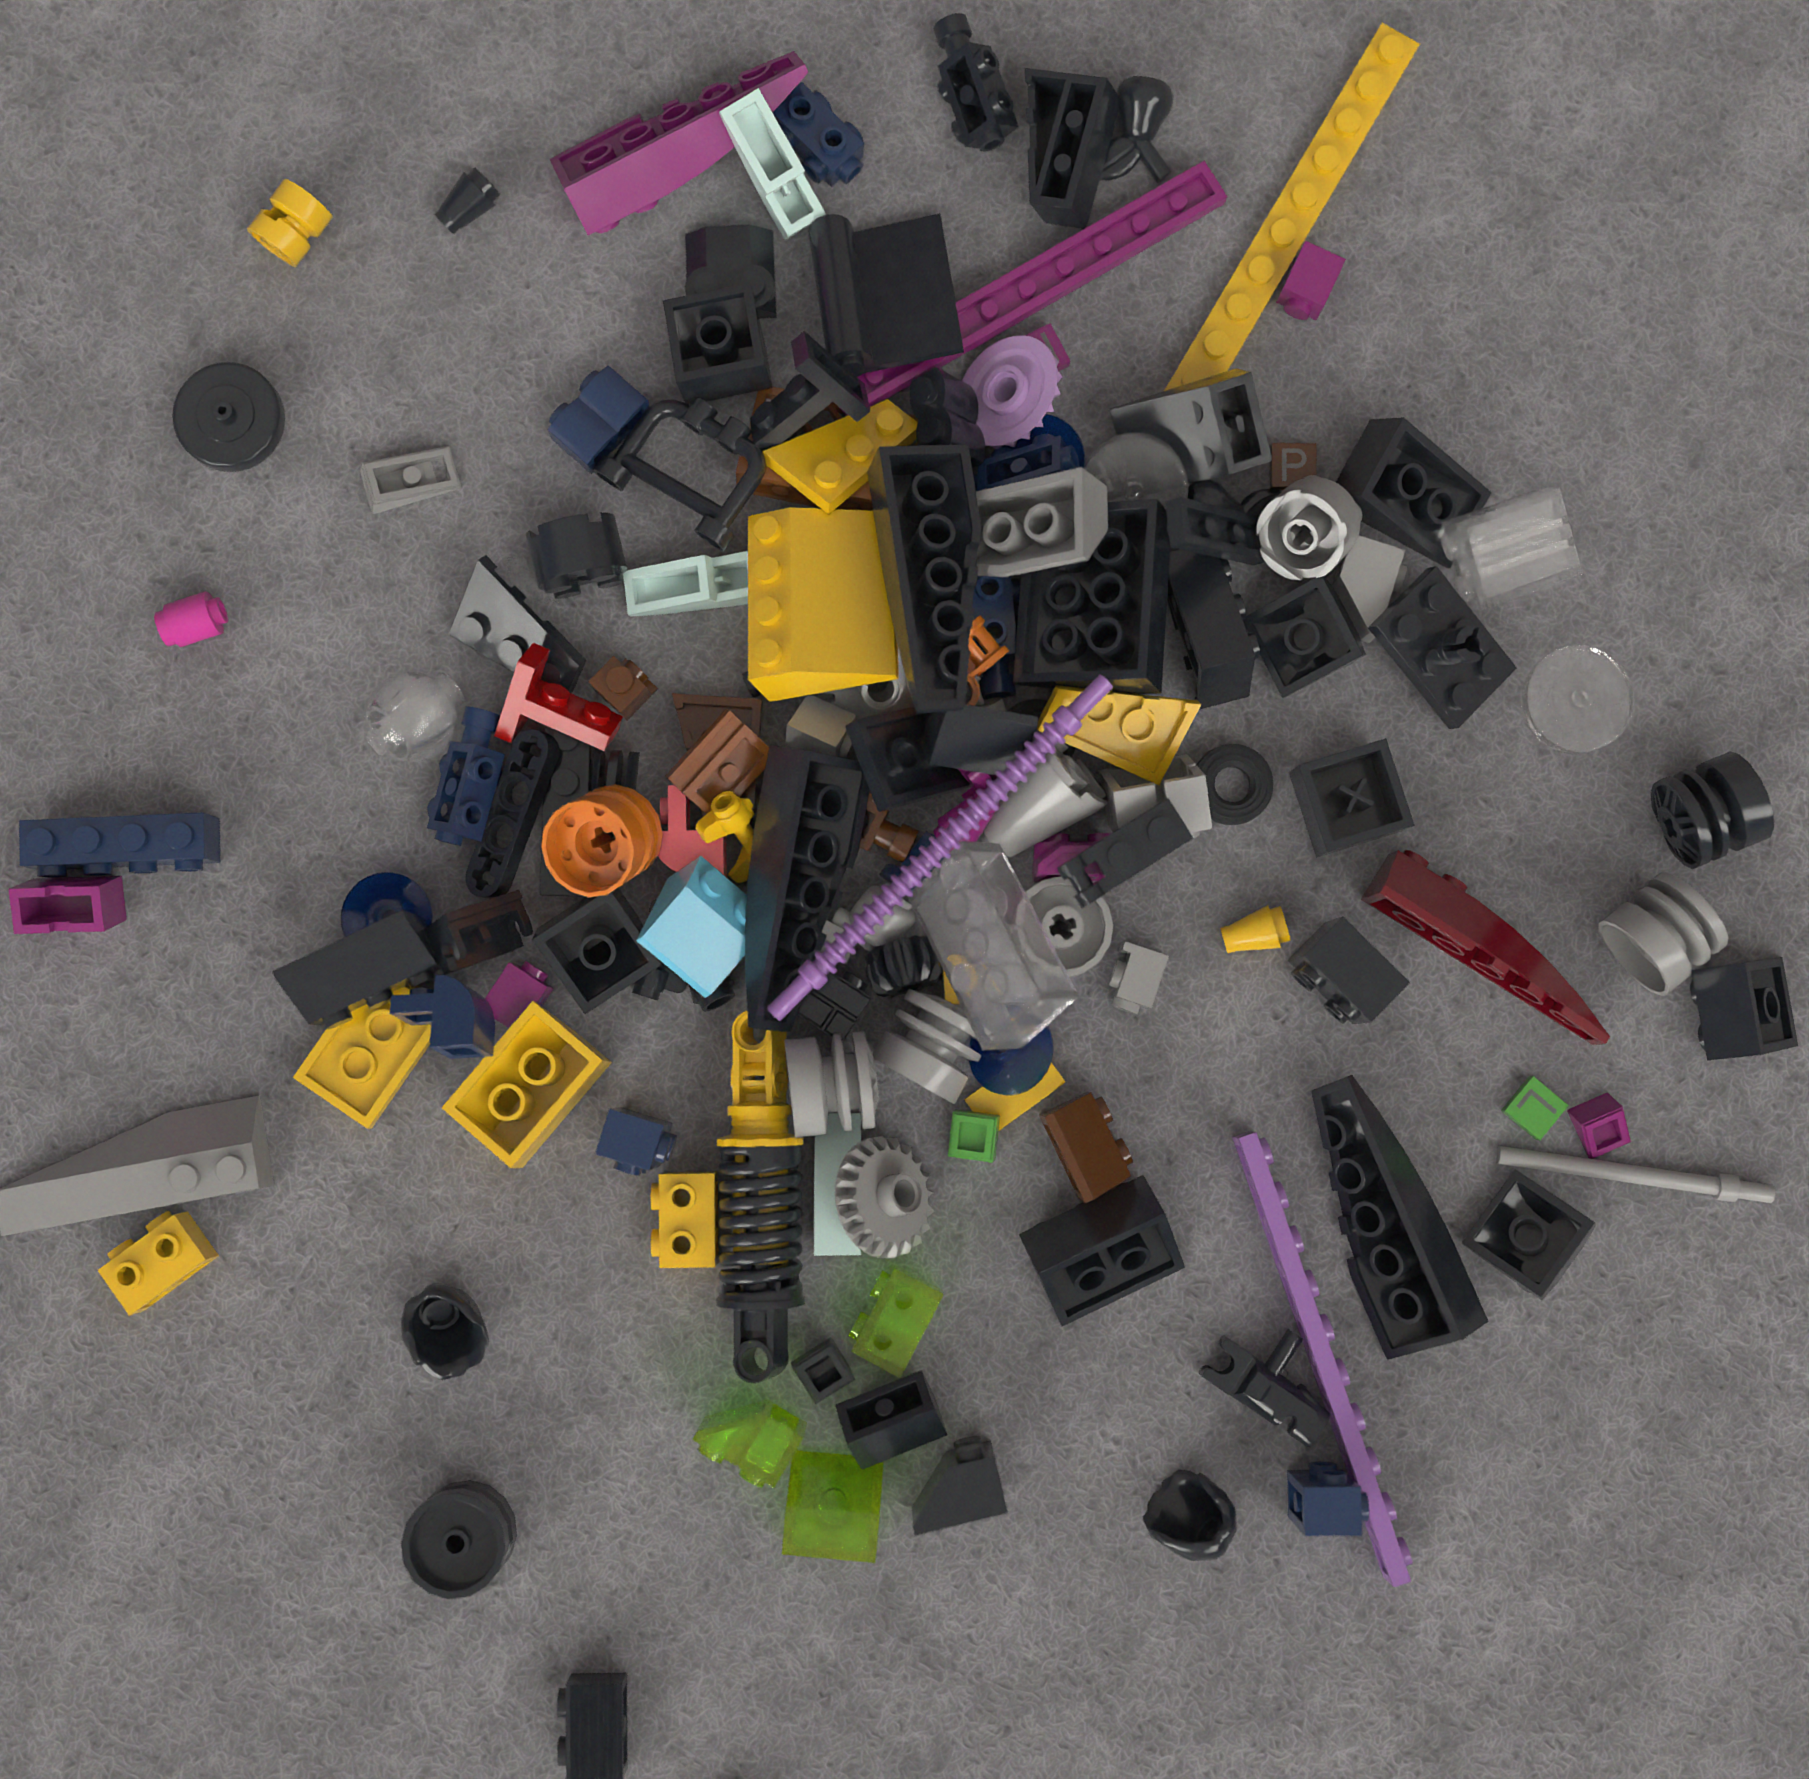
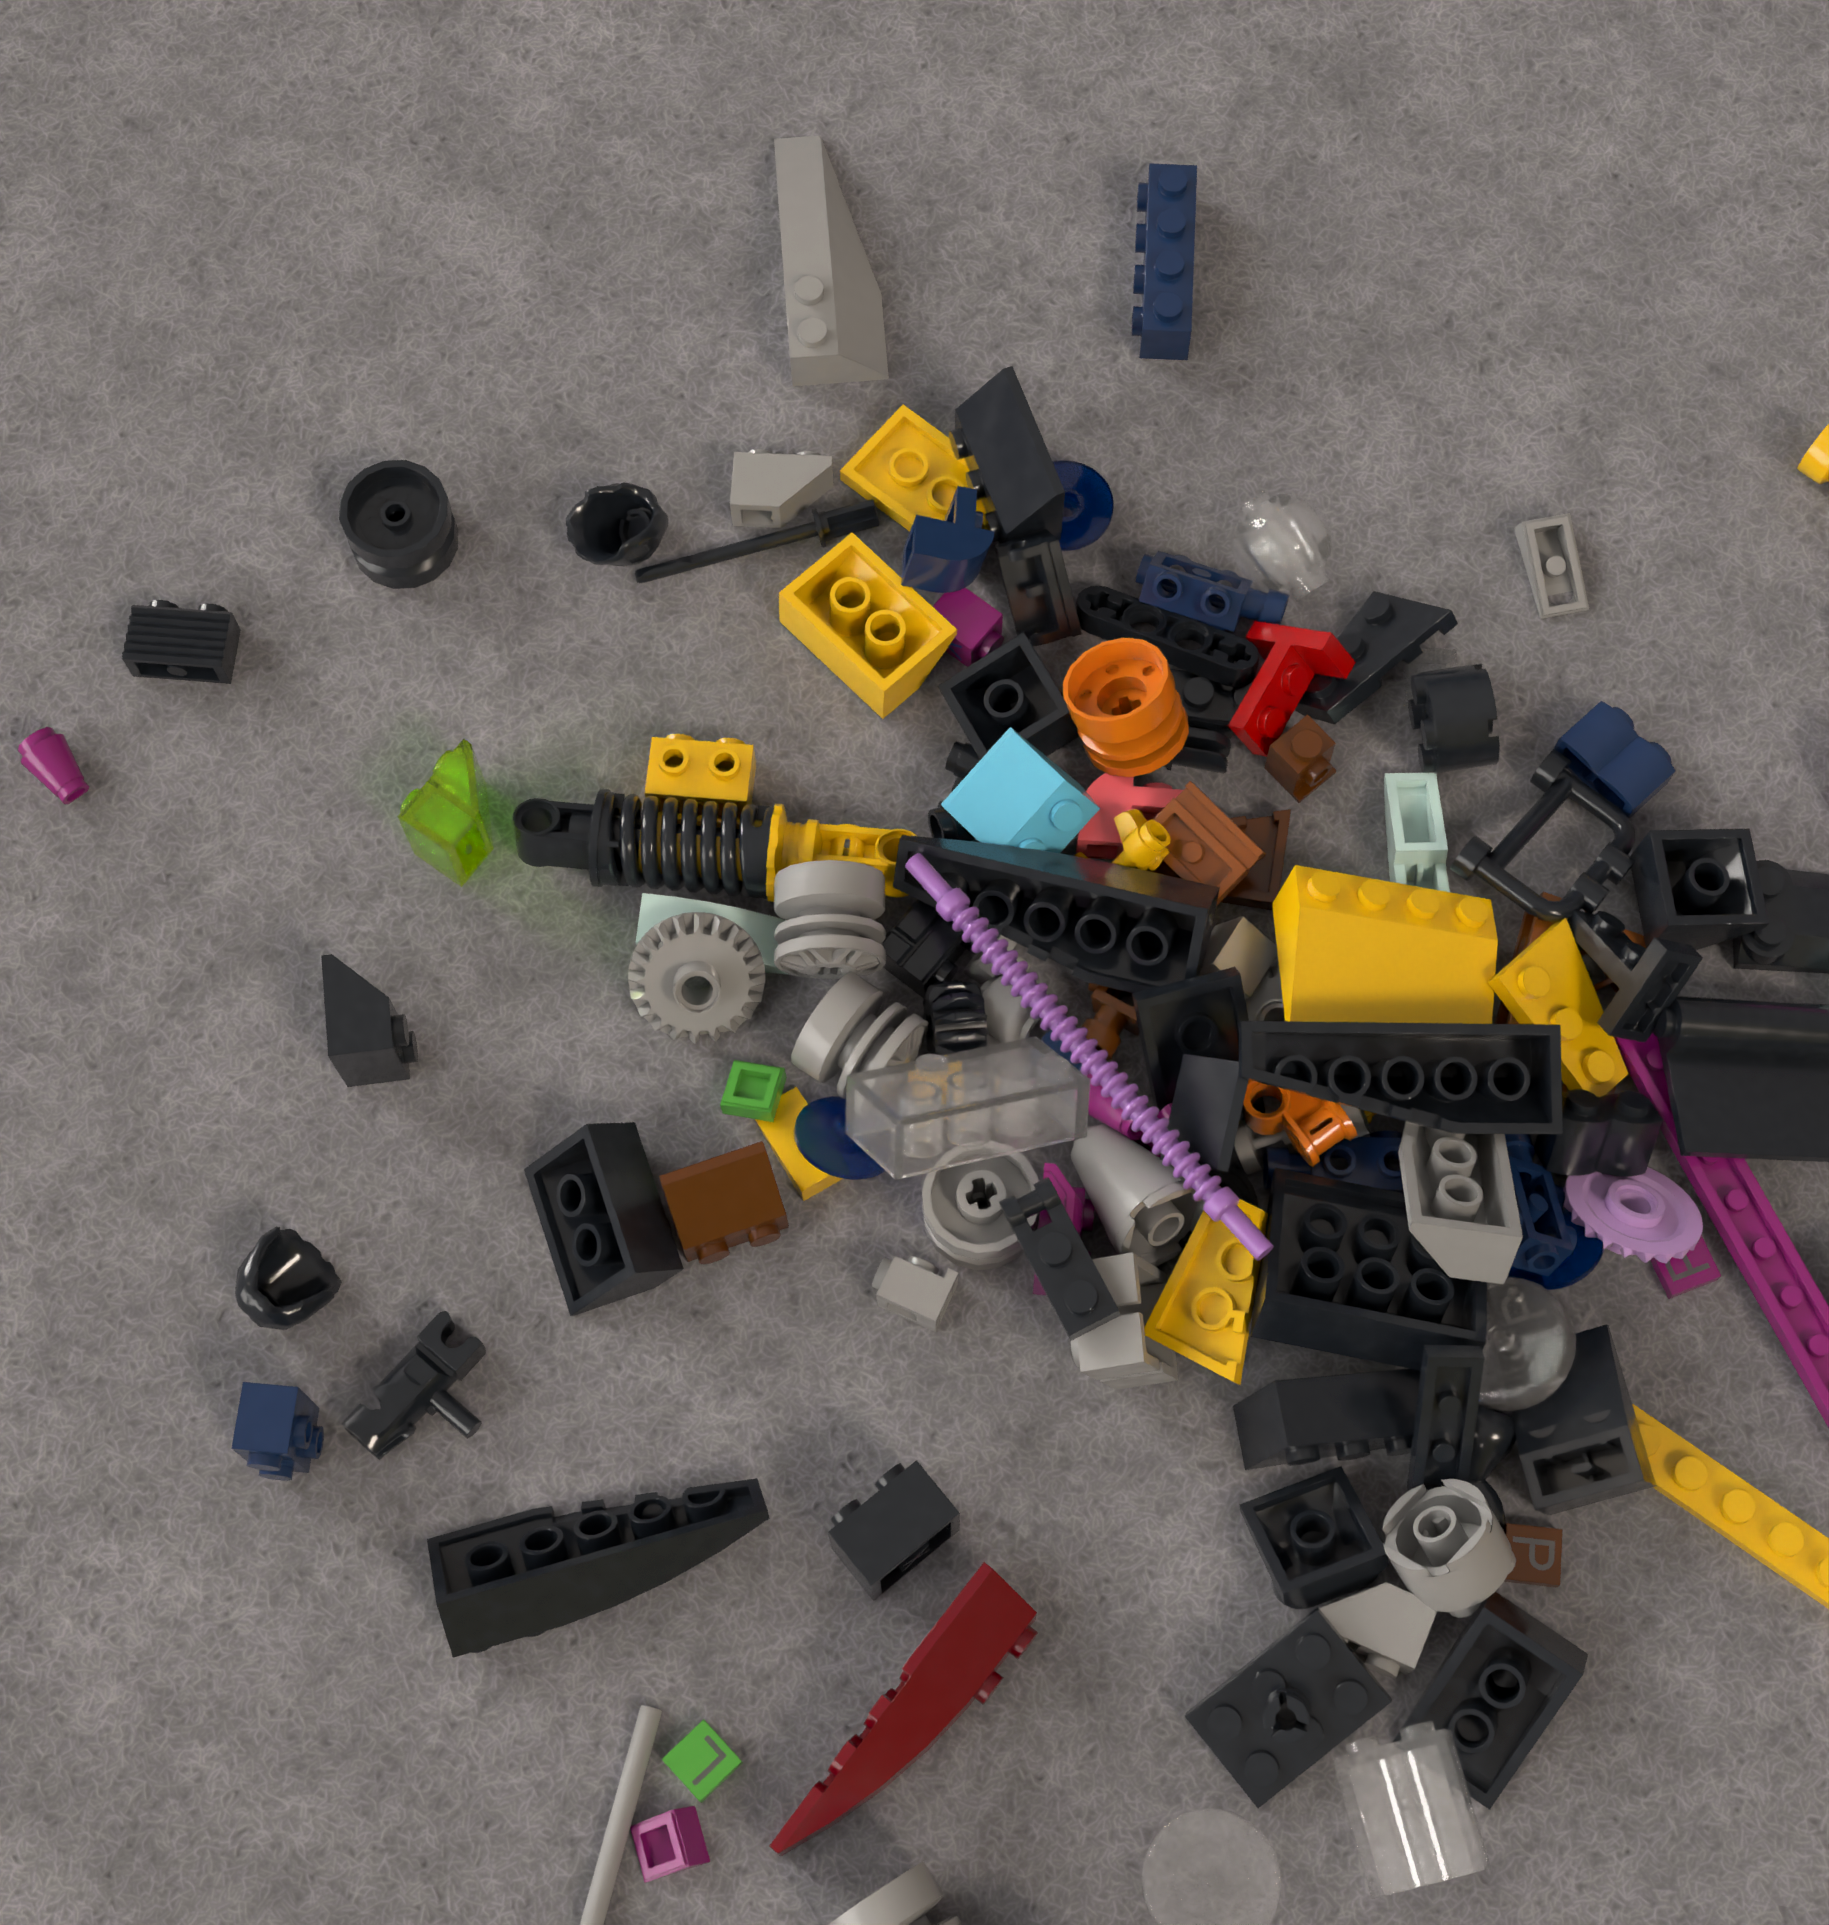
camera: 100 degrees right, 15 degrees down
(67, 904) = (1106, 208): magenta brick -> none
(157, 1262) = (727, 270): yellow brick -> none
(191, 619) = (1403, 342): dark pink brick -> none
(228, 417) = (1626, 391): black wheel -> none
(389, 1187) = (776, 487): none -> light grey slope
(422, 1135) = (825, 526): none -> black piece
(635, 1141) = (793, 723): dark blue brick -> none
(823, 1370) = (516, 902): black brick -> none
(832, 1507) = (366, 898): clear neon green slope -> none
(891, 1420) = (450, 963): black brick -> none
(896, 1319) = (559, 983): clear neon green brick -> none
(1257, 931) = (956, 1444): yellow cone -> none
(1259, 779) = (1126, 1465): black tyre -> none
(1310, 282) = (1768, 1599): magenta brick -> none
(1328, 1372) = (421, 1461): medium lavender plate -> none
(1351, 798) = (1107, 1565): black brick -> none
(1529, 1235) = (546, 1727): black slope -> none

